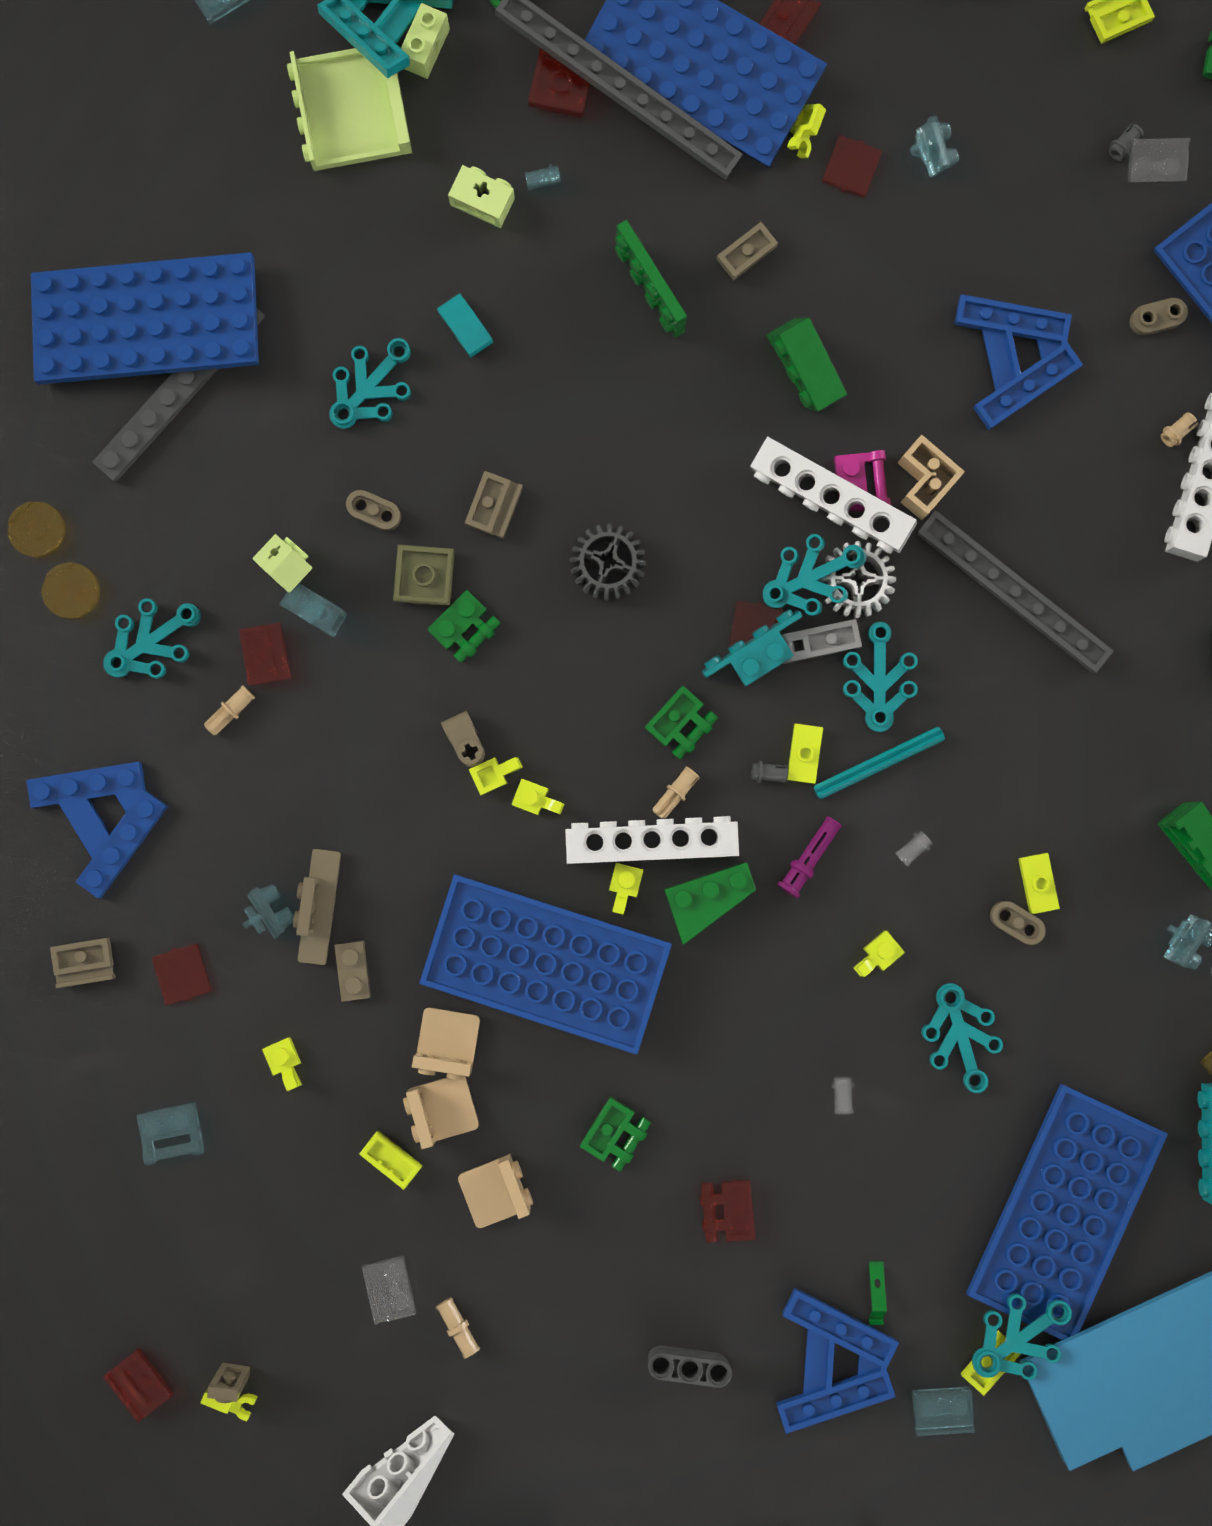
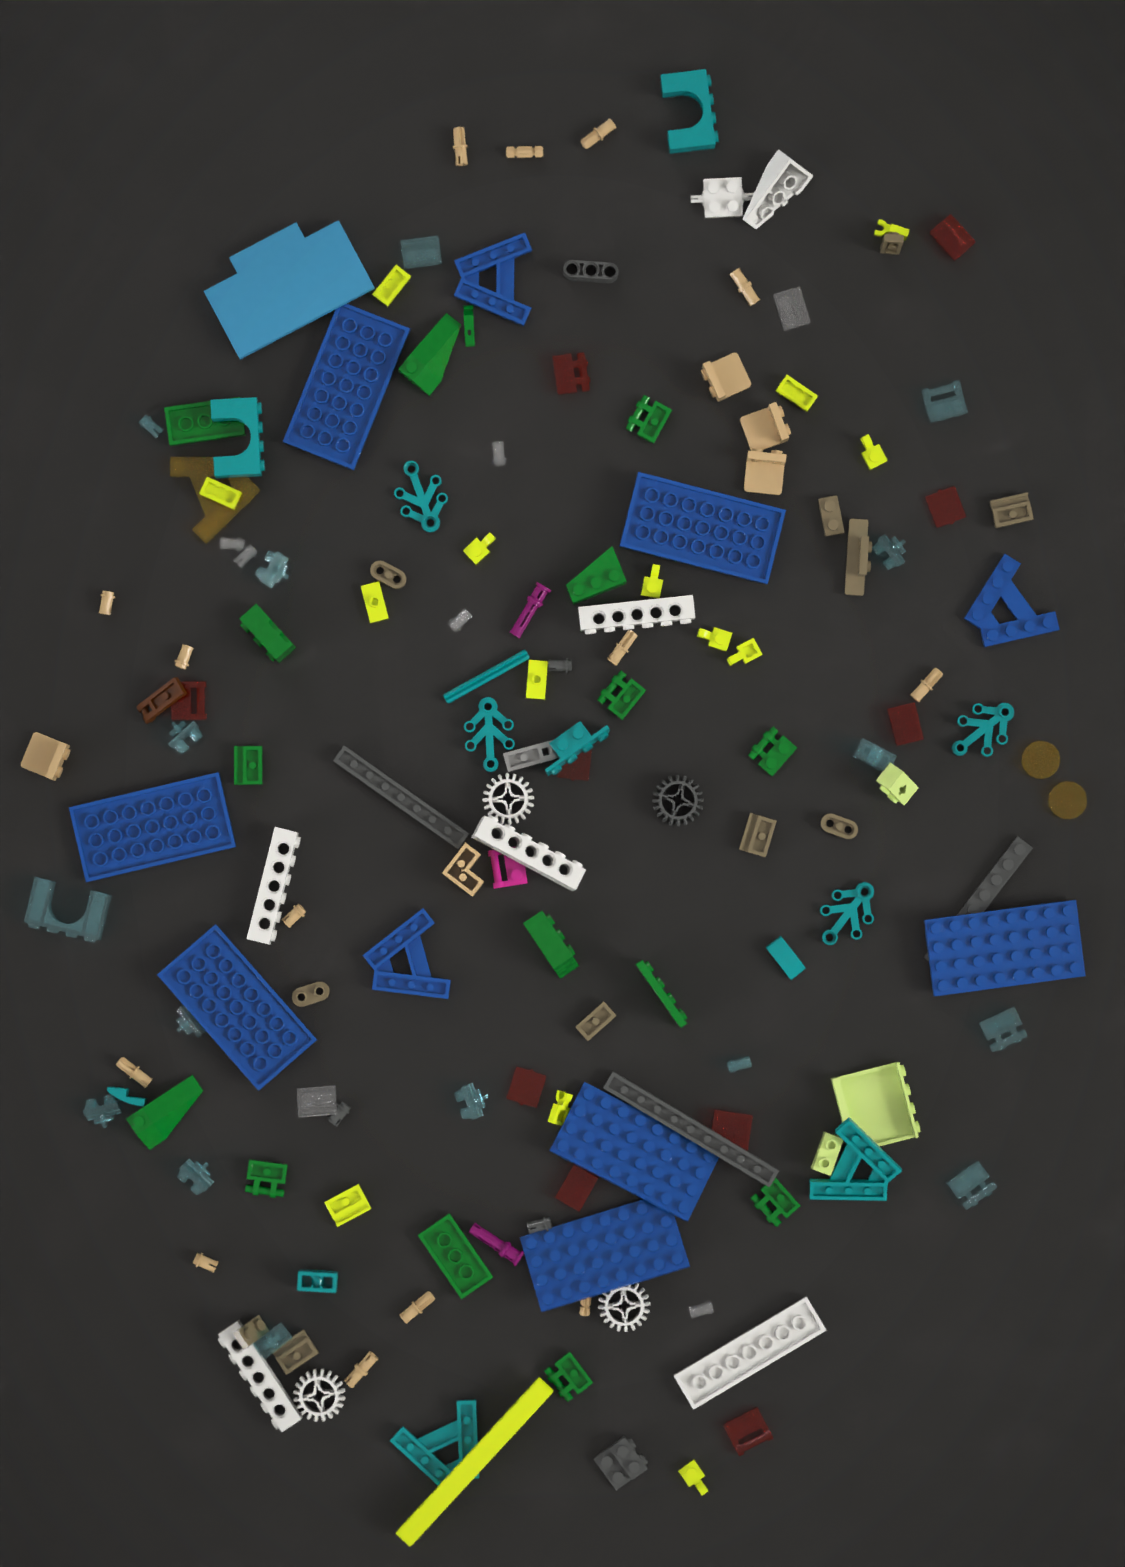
camera: 175 degrees right, 0 degrees up
(158, 211) = (1001, 1023): none -> clear light blue plate
(423, 575) = (801, 784): olive plate -> none
(462, 735) = (769, 677): dark tan piece -> none
(482, 1468) = (722, 197): none -> white plate
(489, 208) = (791, 1047): yellowish green brick -> none
(809, 577) = (541, 796): teal plant -> none
(939, 1248) = (429, 359): none -> green wedge
(1017, 1340) = (378, 301): teal plant -> none

